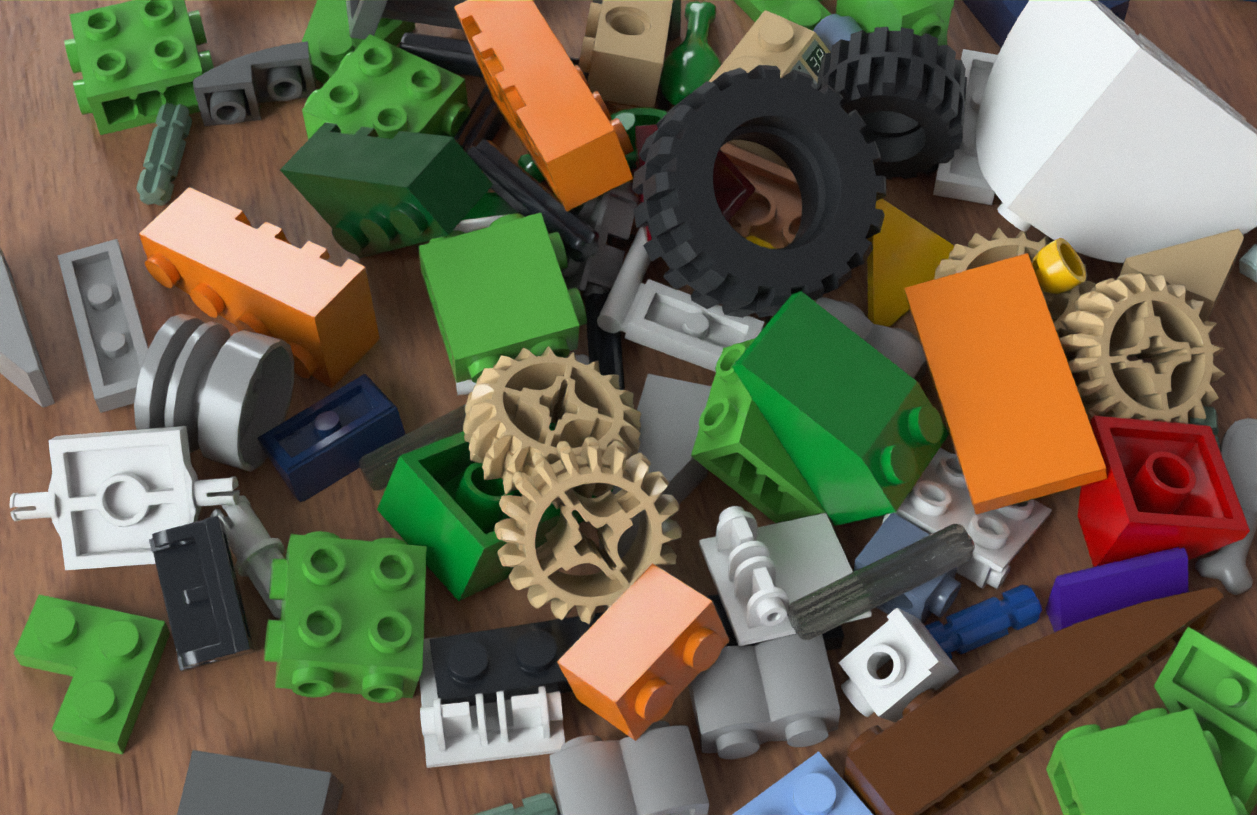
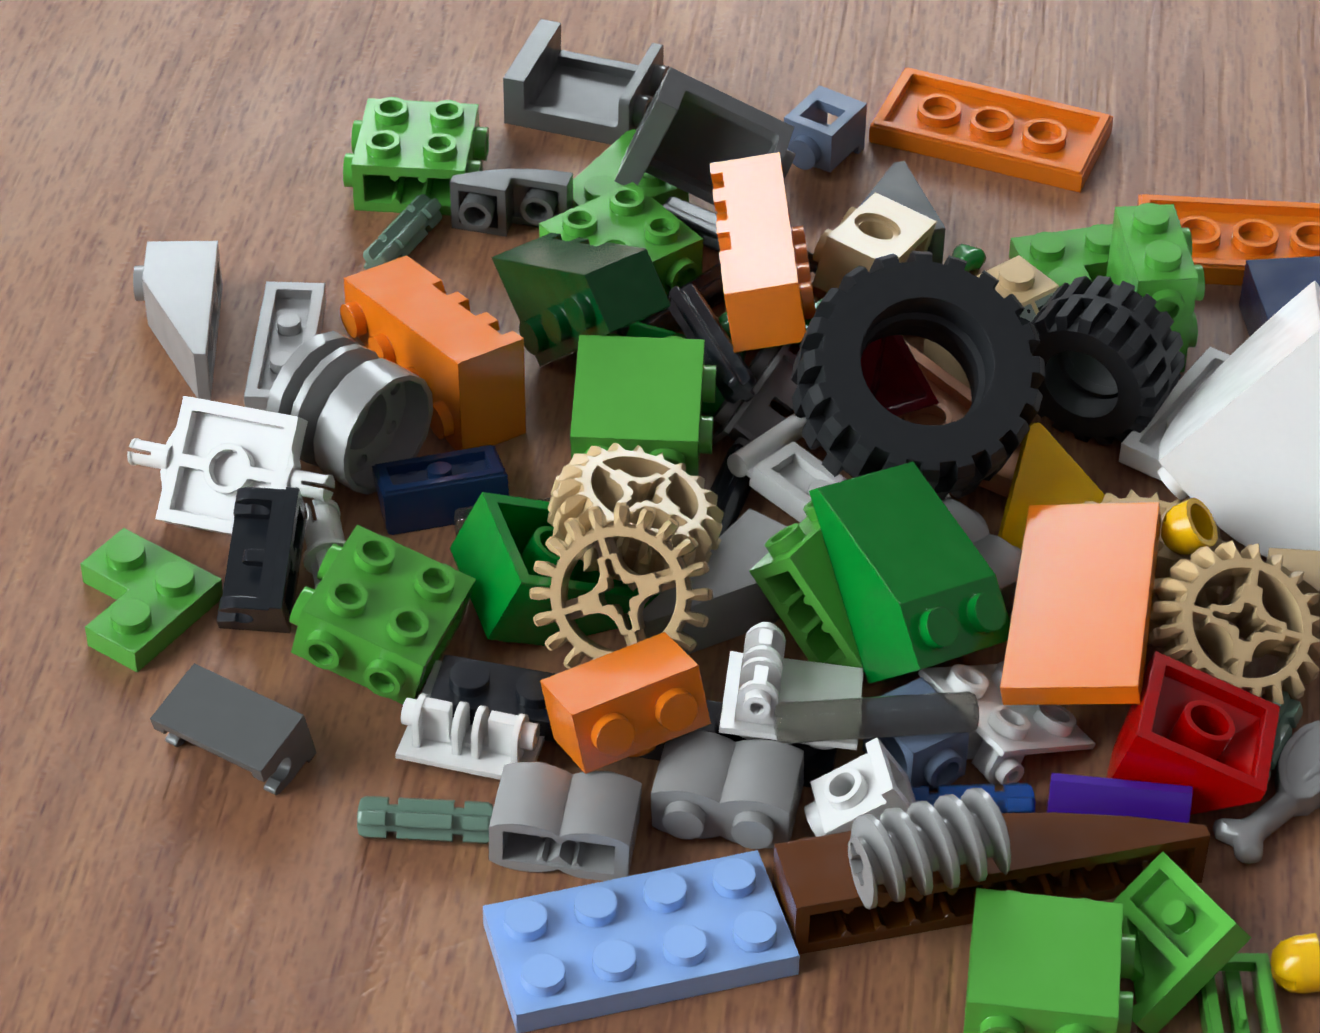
camera: 20 degrees right, 15 degrees down
(1002, 715) = (926, 842): none -> light grey piece

